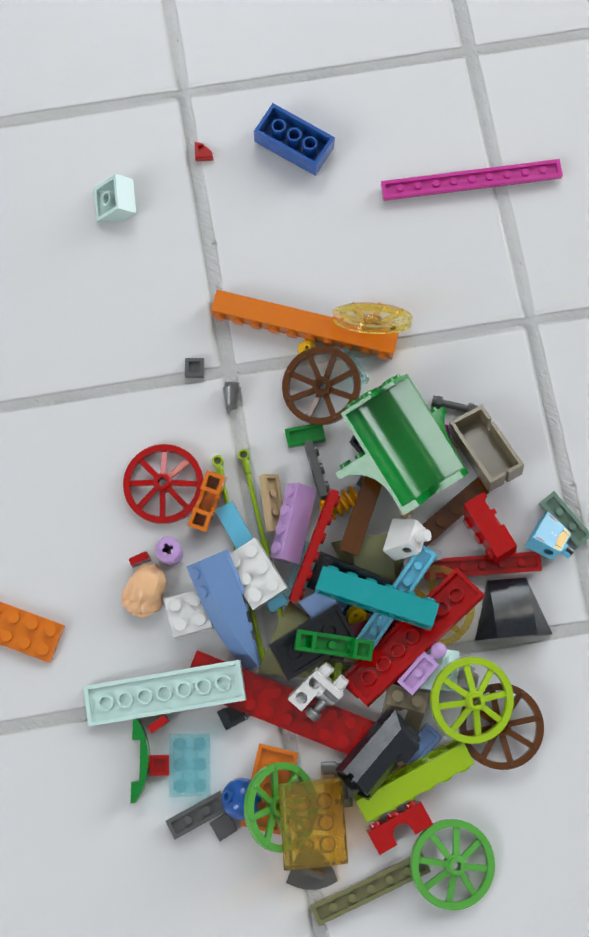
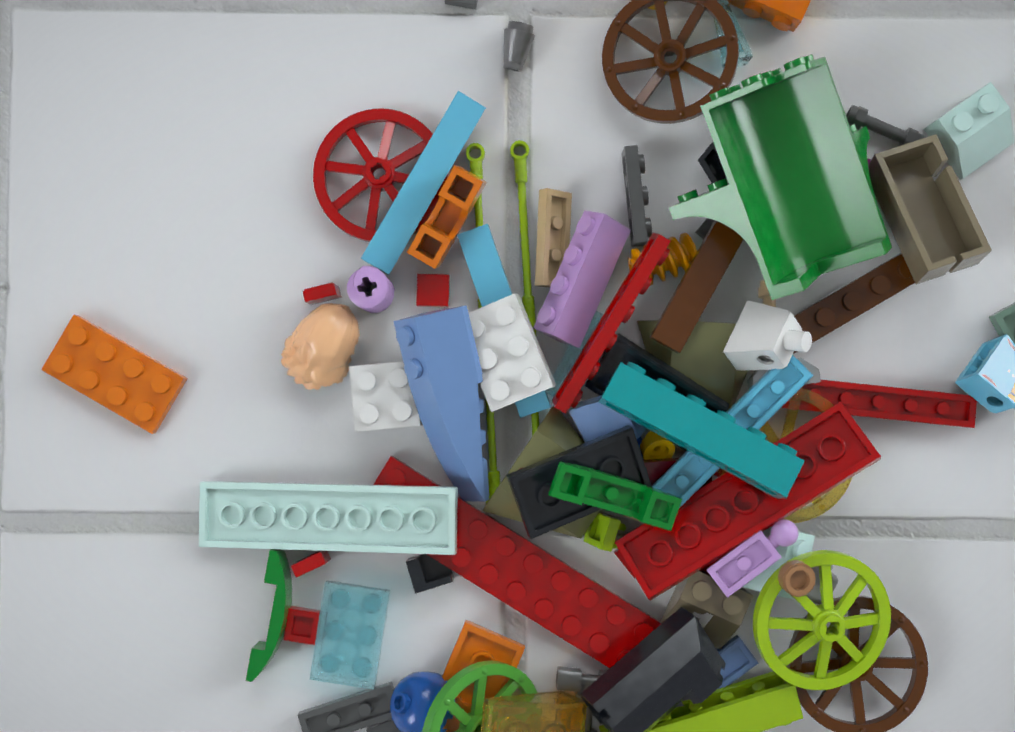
camera: 15 degrees right, 10 degrees up
(189, 484) = (423, 183): none -> medium azure tile
(205, 546) = (433, 290): none -> red tile
(298, 435) = (615, 133): green tile -> none
(320, 685) = (576, 550): white hips -> none
(449, 675) = (796, 578): none -> medium nougat tile
(488, 529) = (902, 347): red wedge -> none
(506, 398) = (974, 130): none -> light aqua slope
(510, 611) = (908, 486): black wedge -> none

